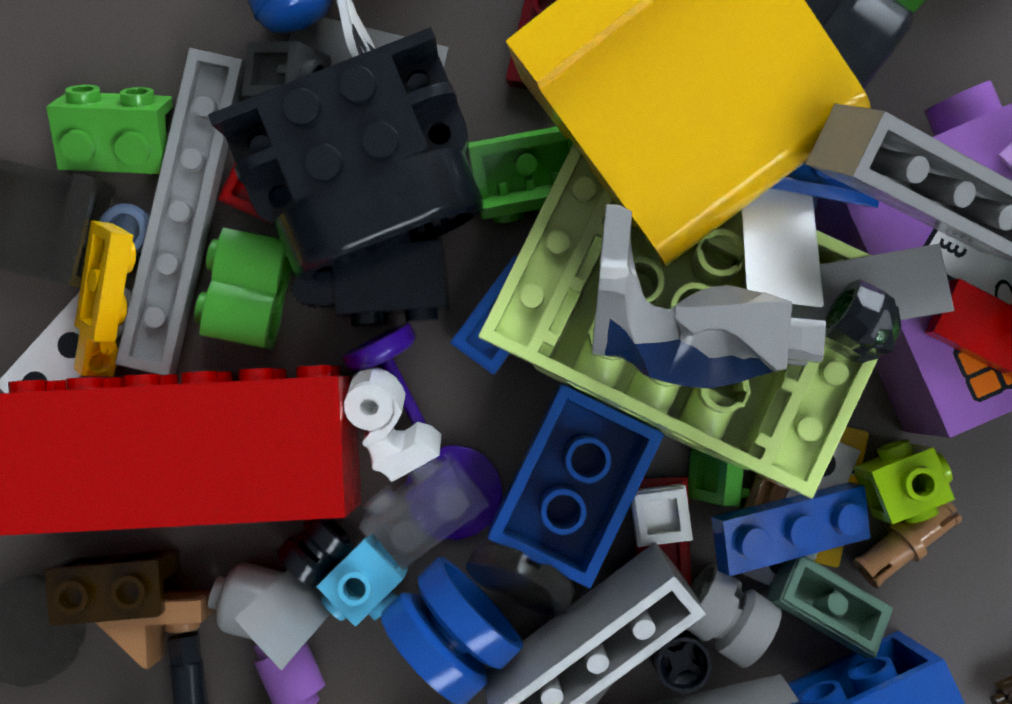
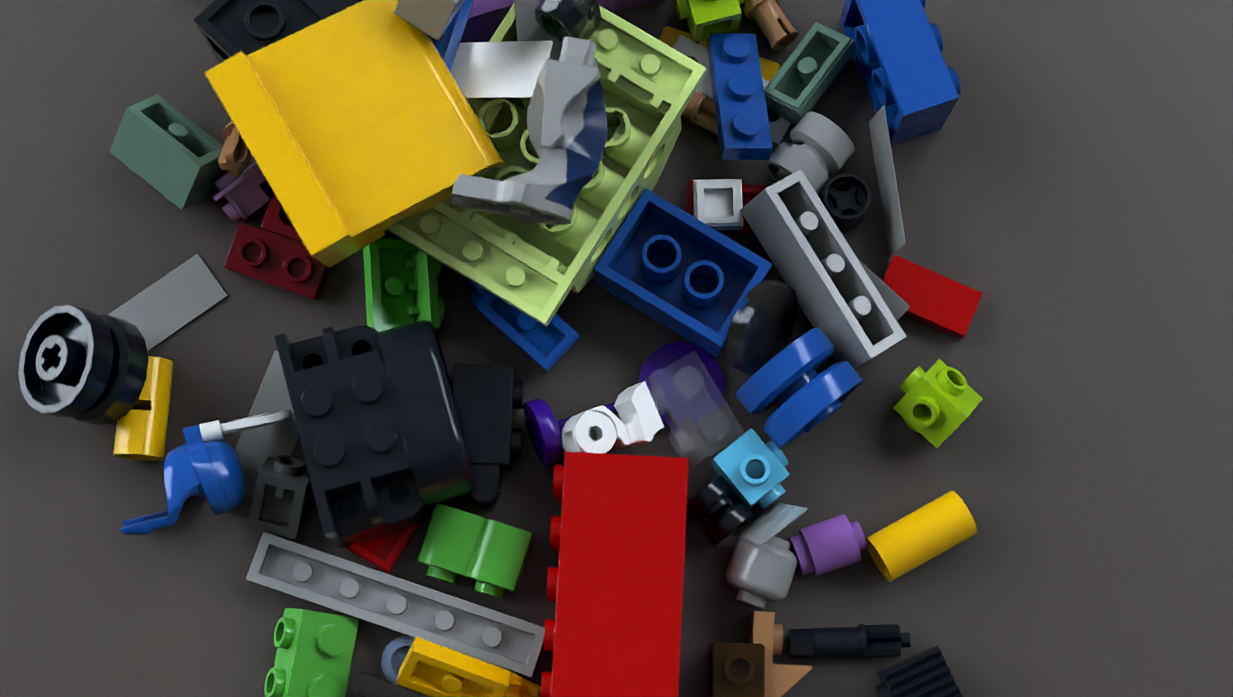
camera: 85 degrees left, 10 degrees down
(715, 480) = (690, 155): bright green tile -> none

